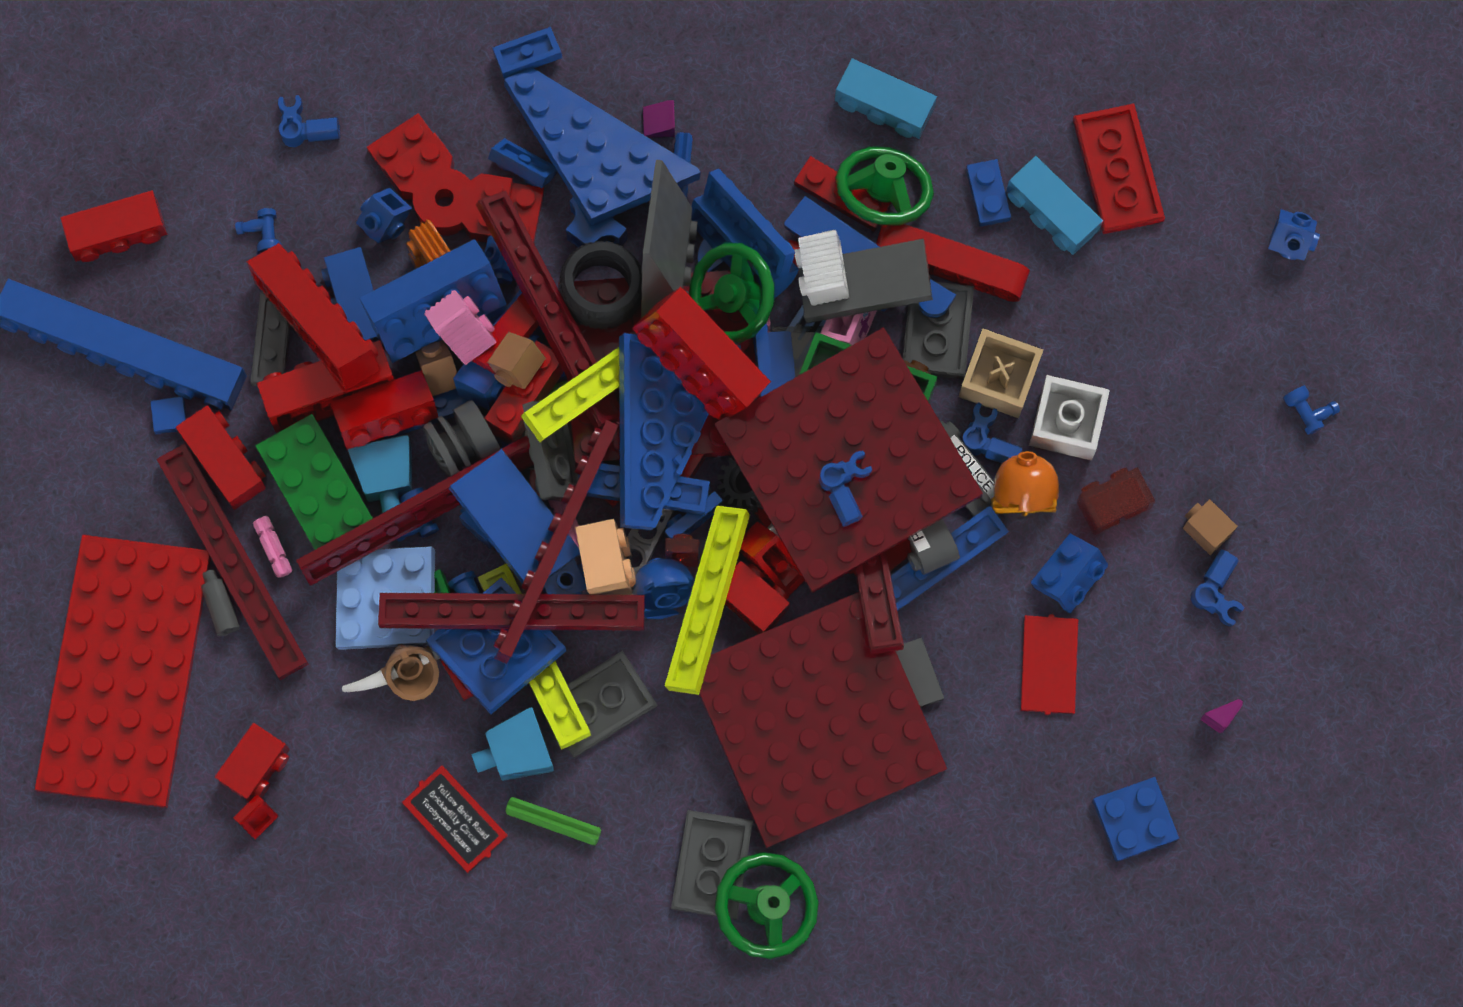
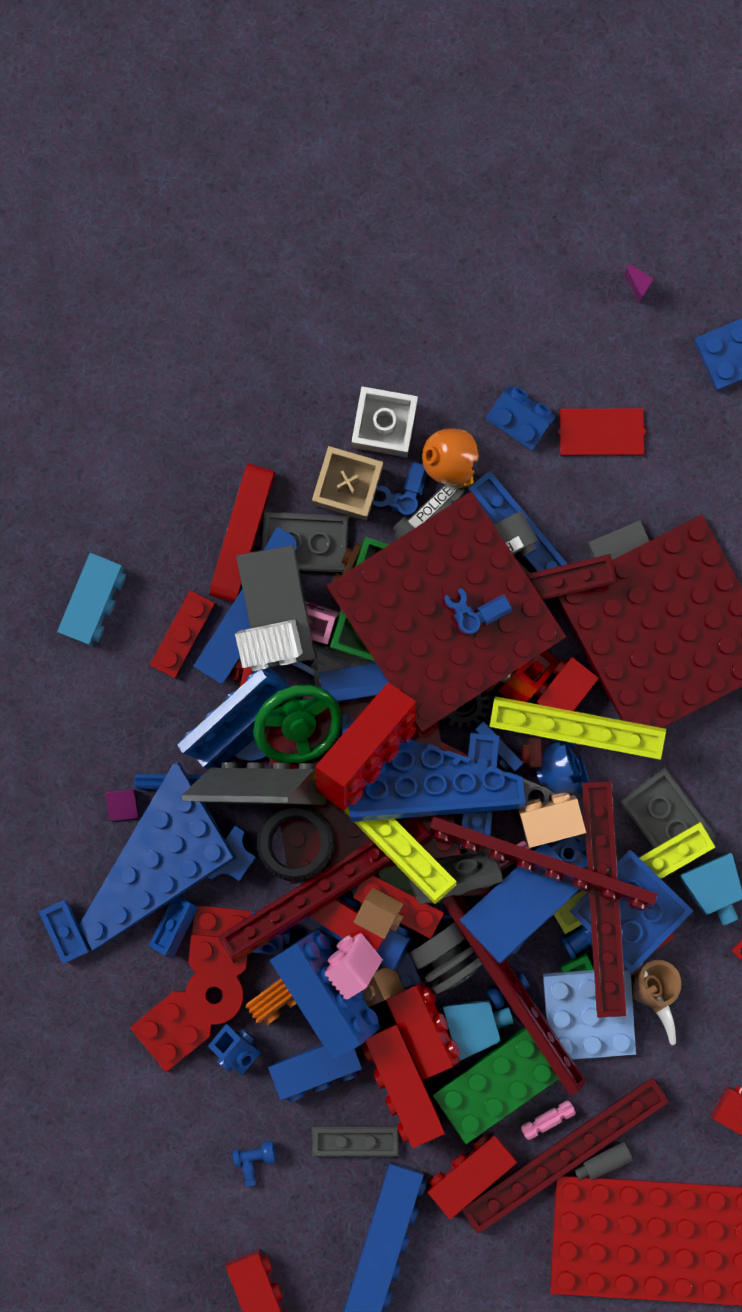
camera: 90 degrees left, 10 degrees up
(168, 414) = (432, 1227): blue tile -> none
(295, 132) = (154, 1141): blue bar -> none
(314, 316) = (343, 1103): red brick -> none
(884, 183) = (176, 595): green piece -> none
(988, 193) = (173, 503): blue plate -> none
(1053, 206) = (185, 444): dark azure brick -> none
(1118, 168) = (143, 388): red tile -> none
(1120, 497) = (454, 379): clear red piece -> none
(1206, 594) = (531, 299): blue bar -> none
(1209, 526) = (472, 298): medium nougat brick -> none
(1294, 235) = (200, 231): blue brick -> none
(1312, 419) = (366, 211): blue piece -> none

